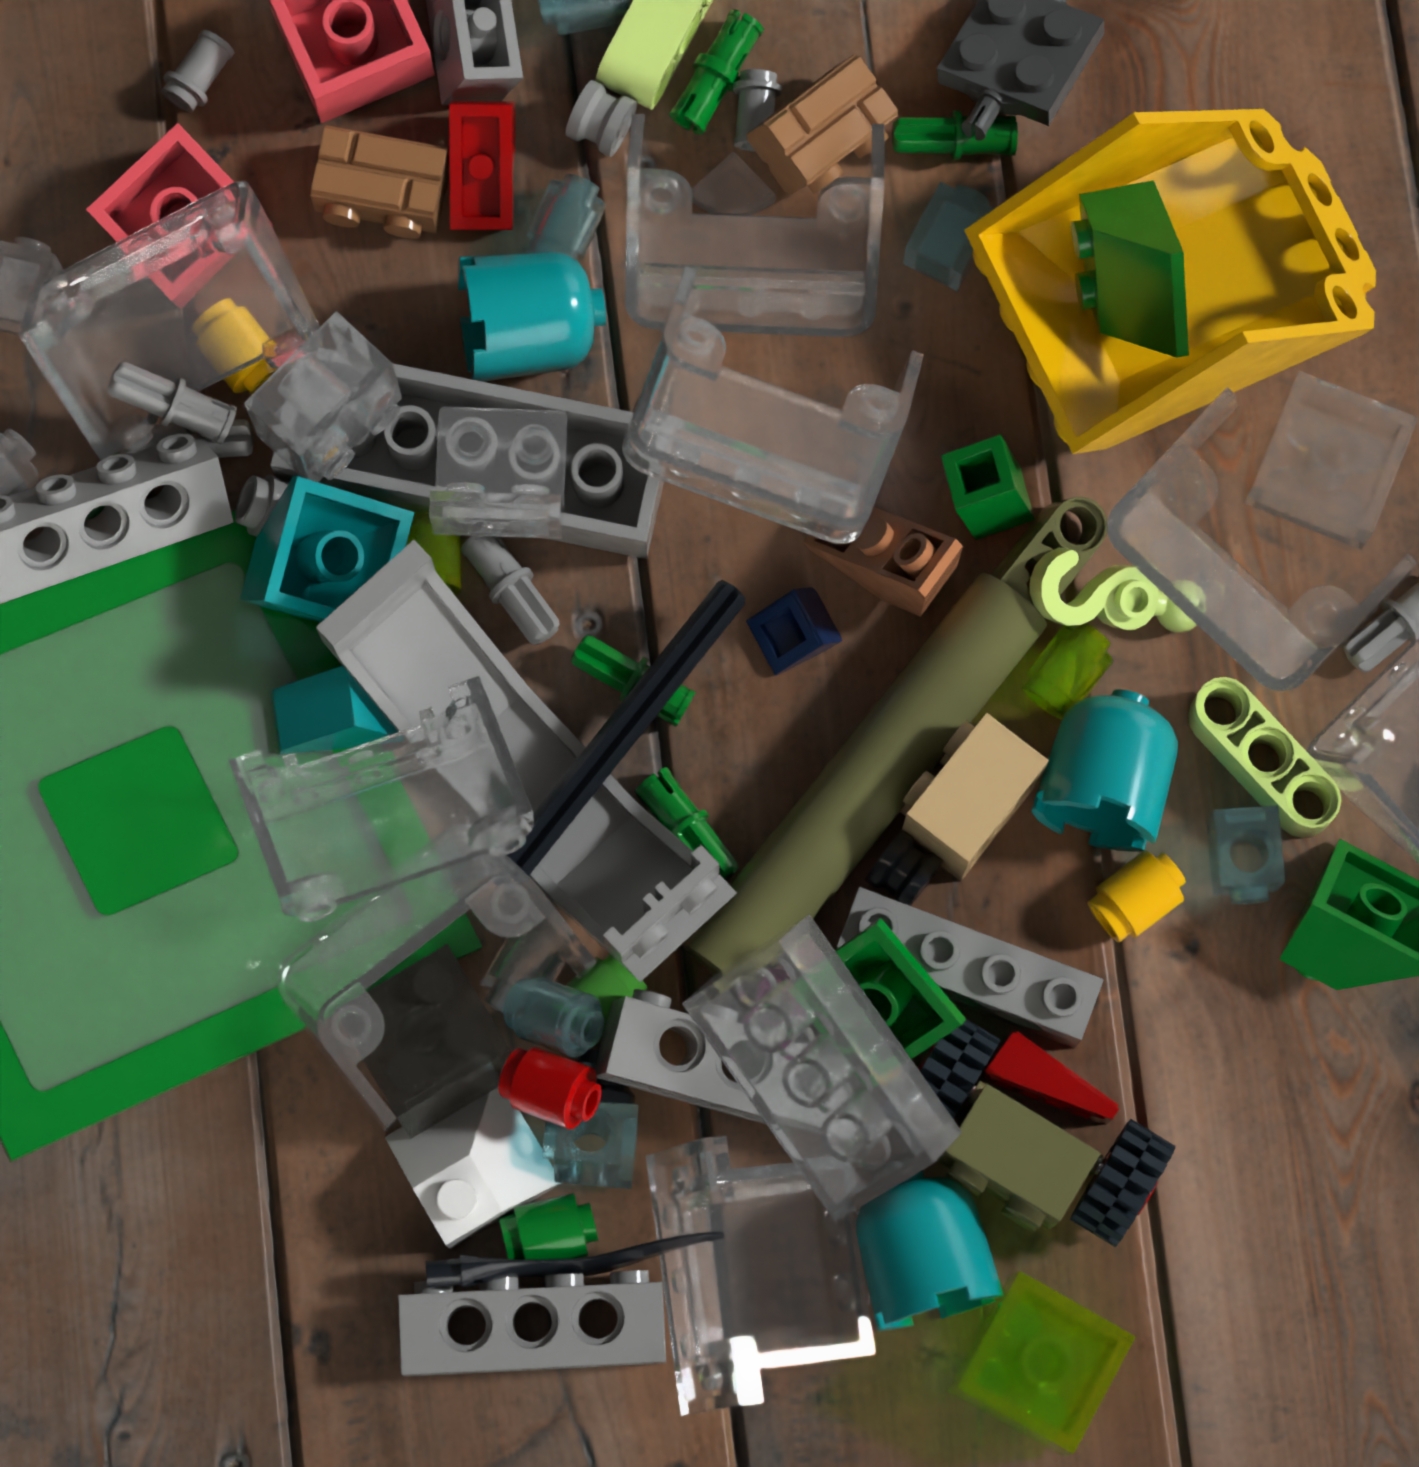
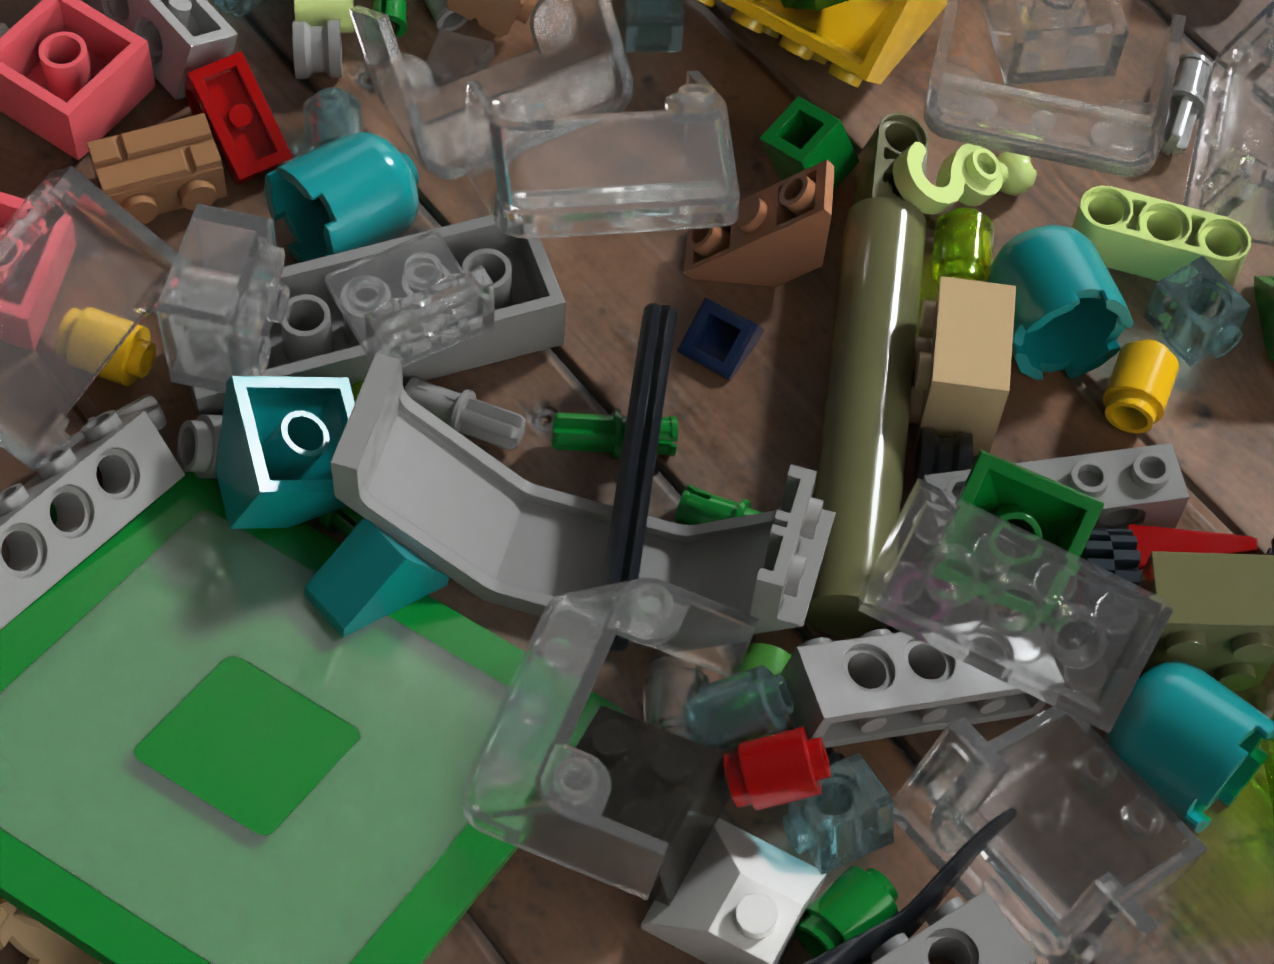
camera: 35 degrees left, 20 degrees down
(172, 401) = (73, 392): light grey axle -> none
(385, 807) = (485, 600): clear windscreen -> none

